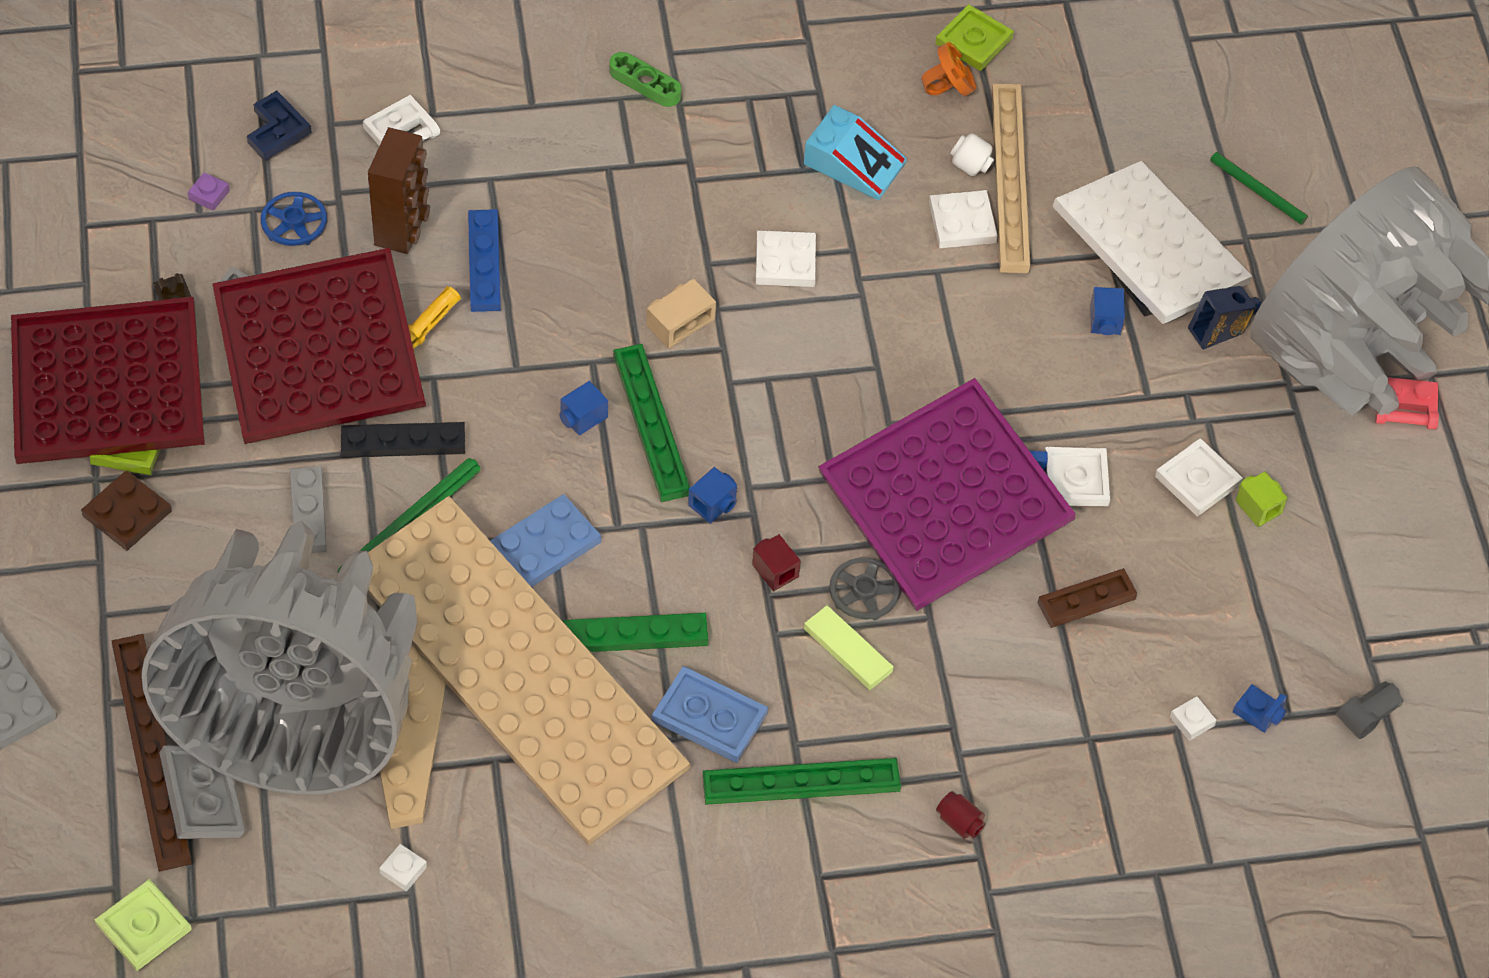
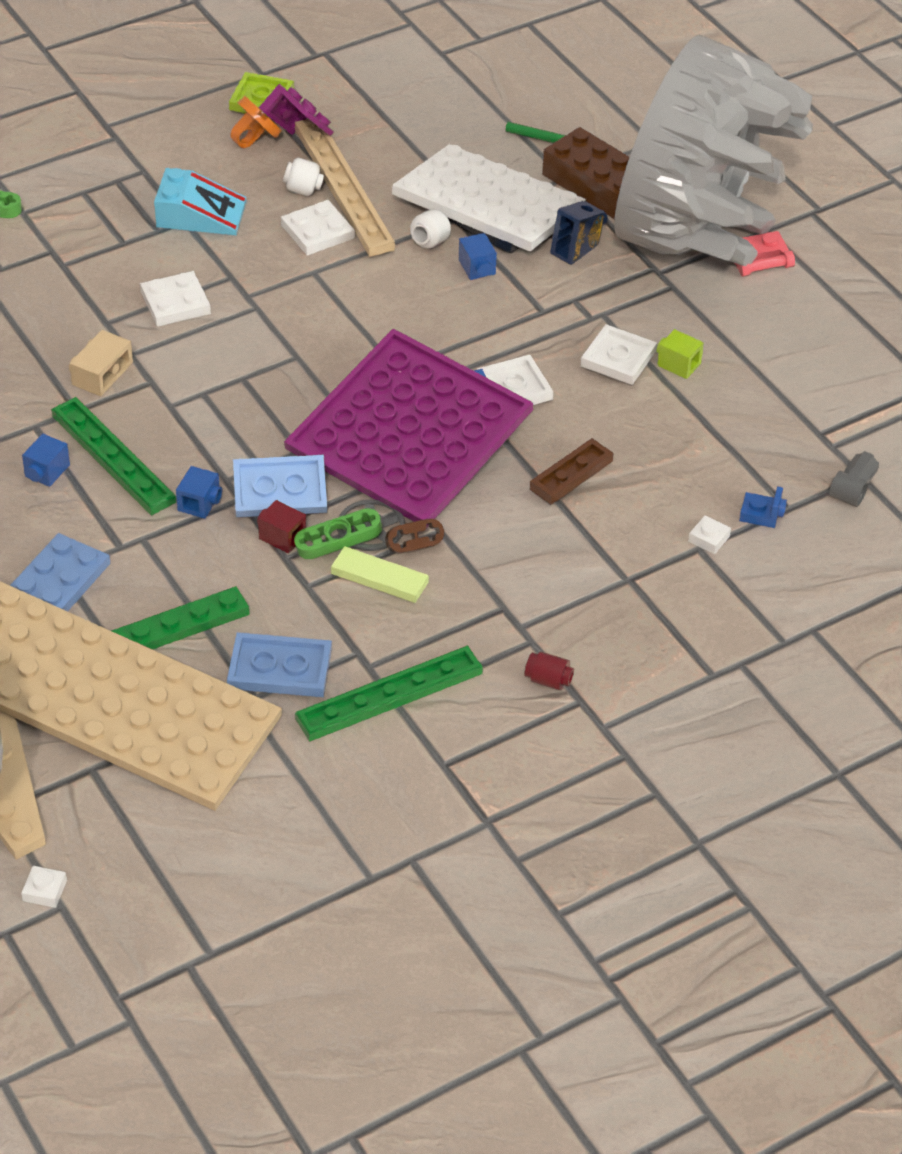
camera: 20 degrees left, 10 degrees down
(800, 514) = (291, 480): none -> light blue plate
(803, 598) = (344, 522): none -> bright green beam
(900, 610) = (412, 528): none -> reddish brown beam
(990, 71) = (286, 108): none -> magenta bracket
(1073, 261) = (430, 228): none -> white head
(1267, 236) = (586, 168): none -> reddish brown brick

